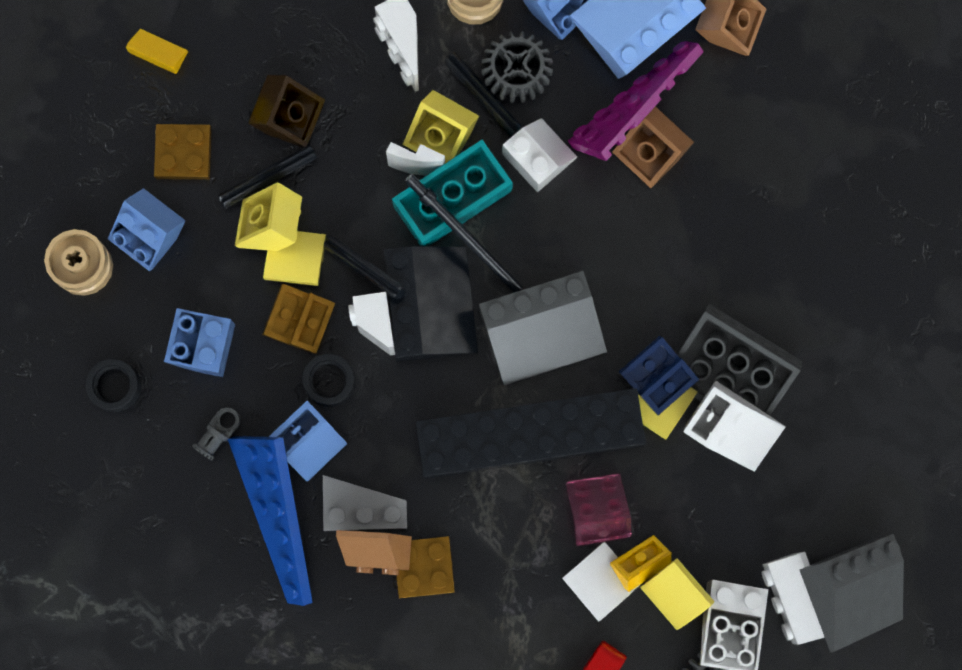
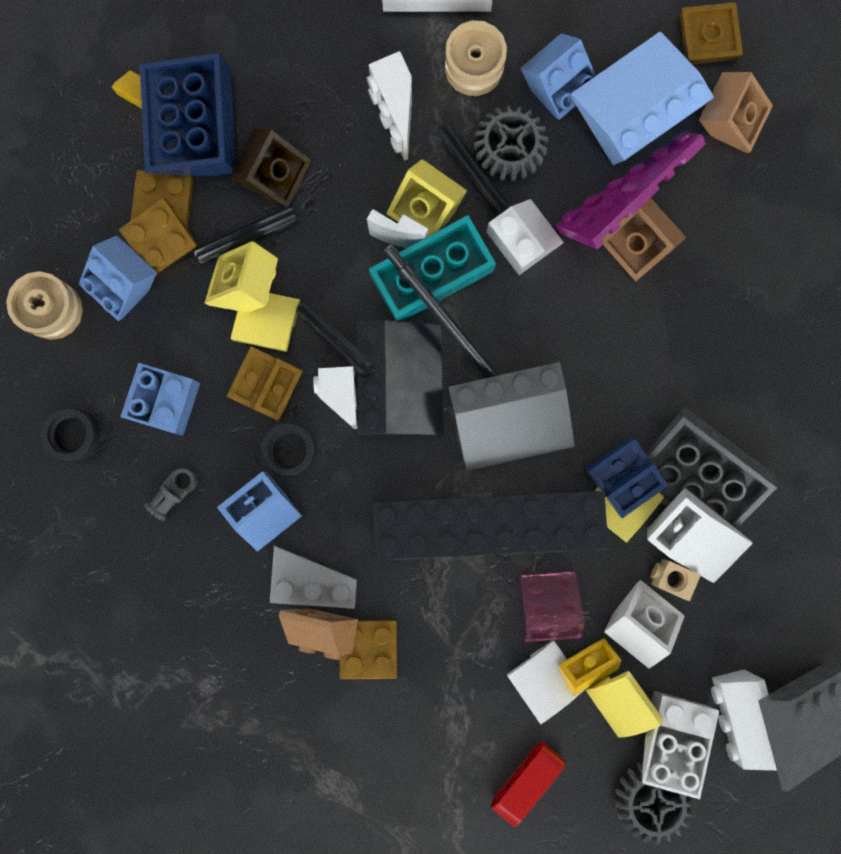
camera: 10 degrees right, 5 degrees up
(184, 185) = (159, 236): none -> pearl gold plate
(202, 69) = (188, 116): none -> dark blue slope
(269, 488) = (217, 558): blue wing -> none
(691, 517) = (645, 625): none -> white slope
(727, 470) = (686, 579): none -> tan brick

